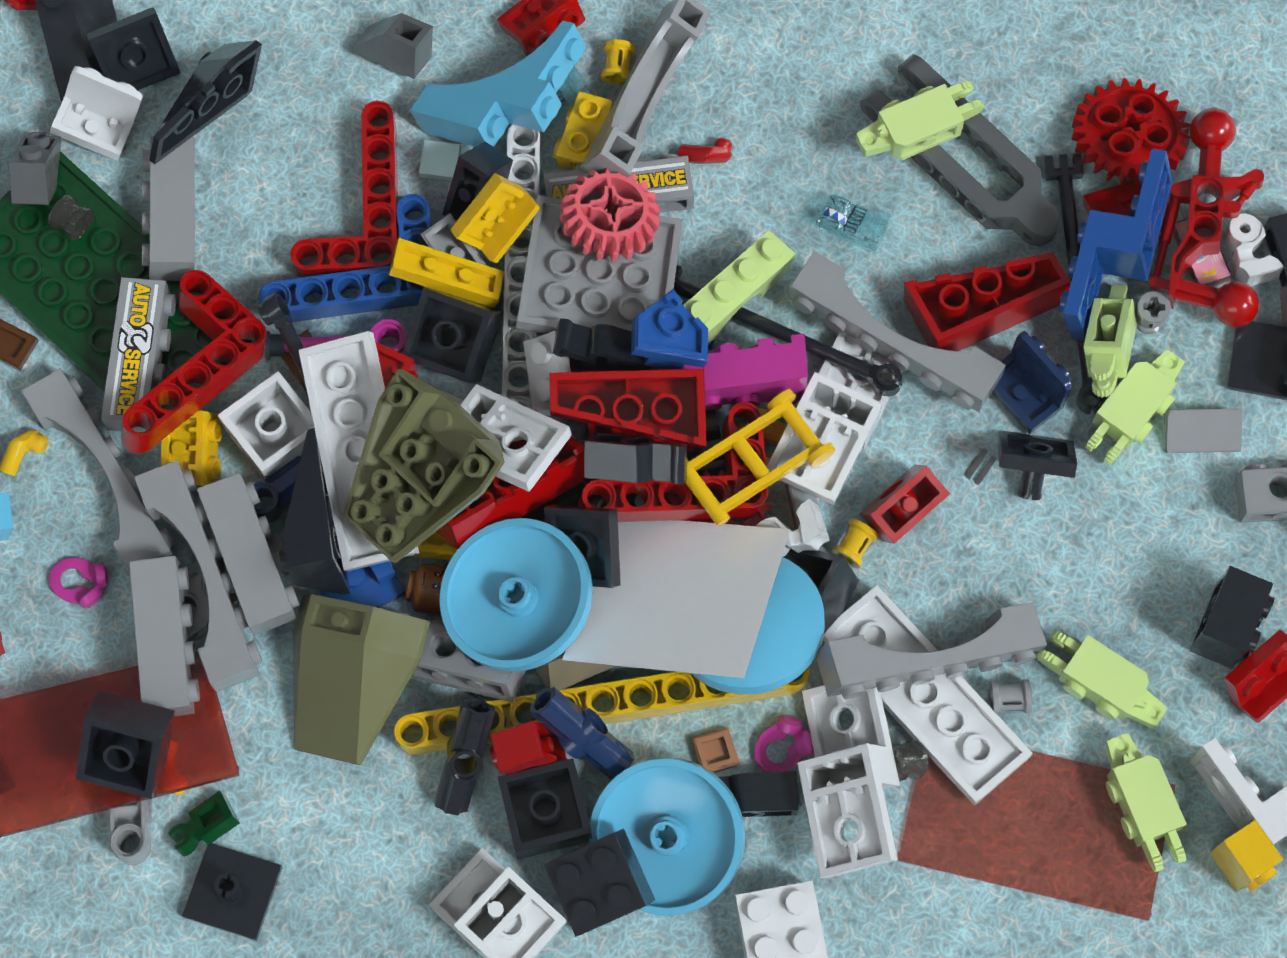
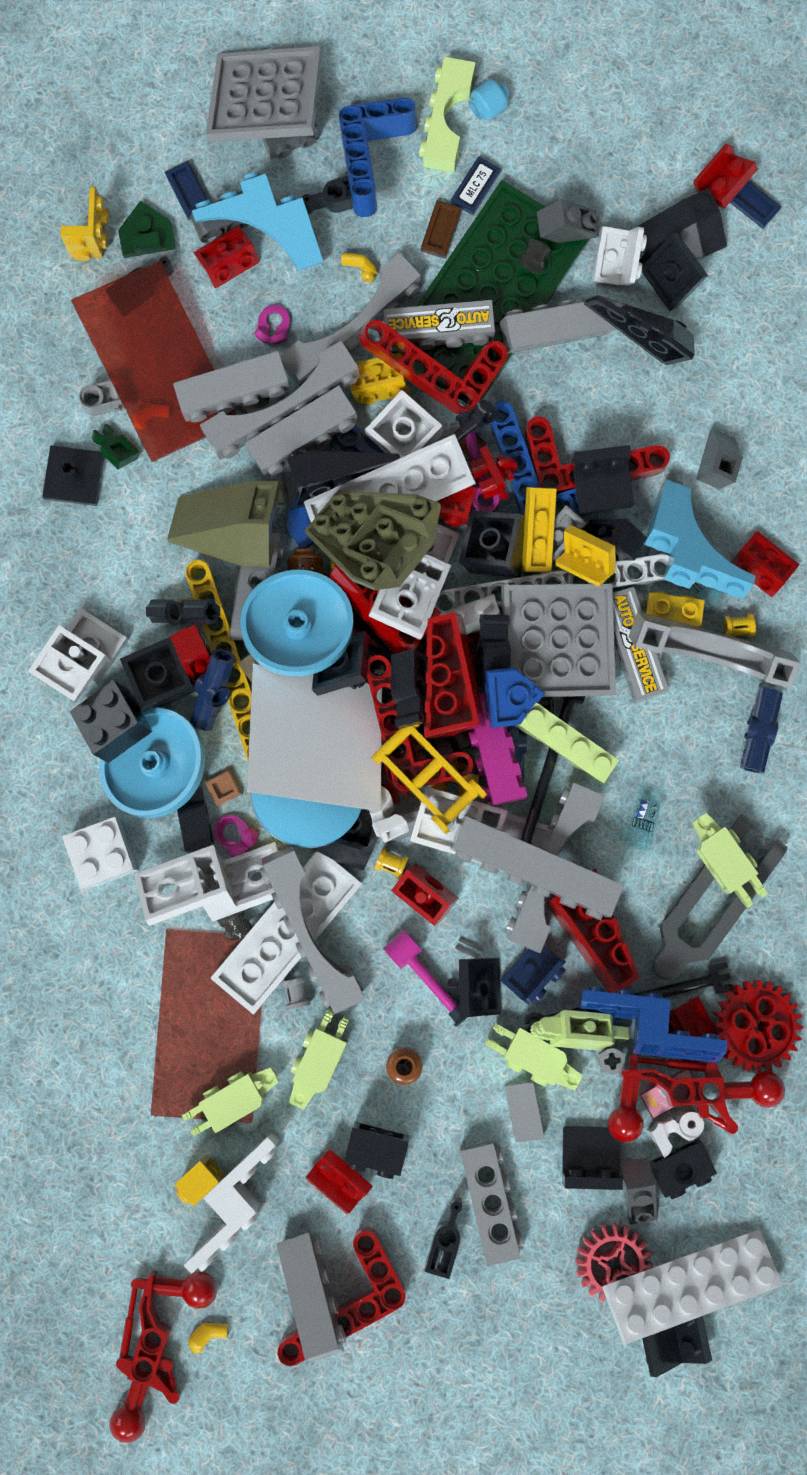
camera: 85 degrees right, 10 degrees up
(124, 744) = (146, 376): black brick -> none
(358, 311) = (497, 471): none -> red hips
(397, 183) = (603, 479): none -> black bracket
(439, 160) = (639, 513): light aqua tile -> none
(593, 226) = (601, 628): coral gear -> none
(715, 154) = (676, 705): red arm -> none
(757, 60) = (761, 730): none -> dark blue piece
(895, 346) = (536, 867): none -> light grey brick
(975, 546) = (403, 952): none -> dark pink piece
(1137, 564) = (406, 1076): none -> dark orange head

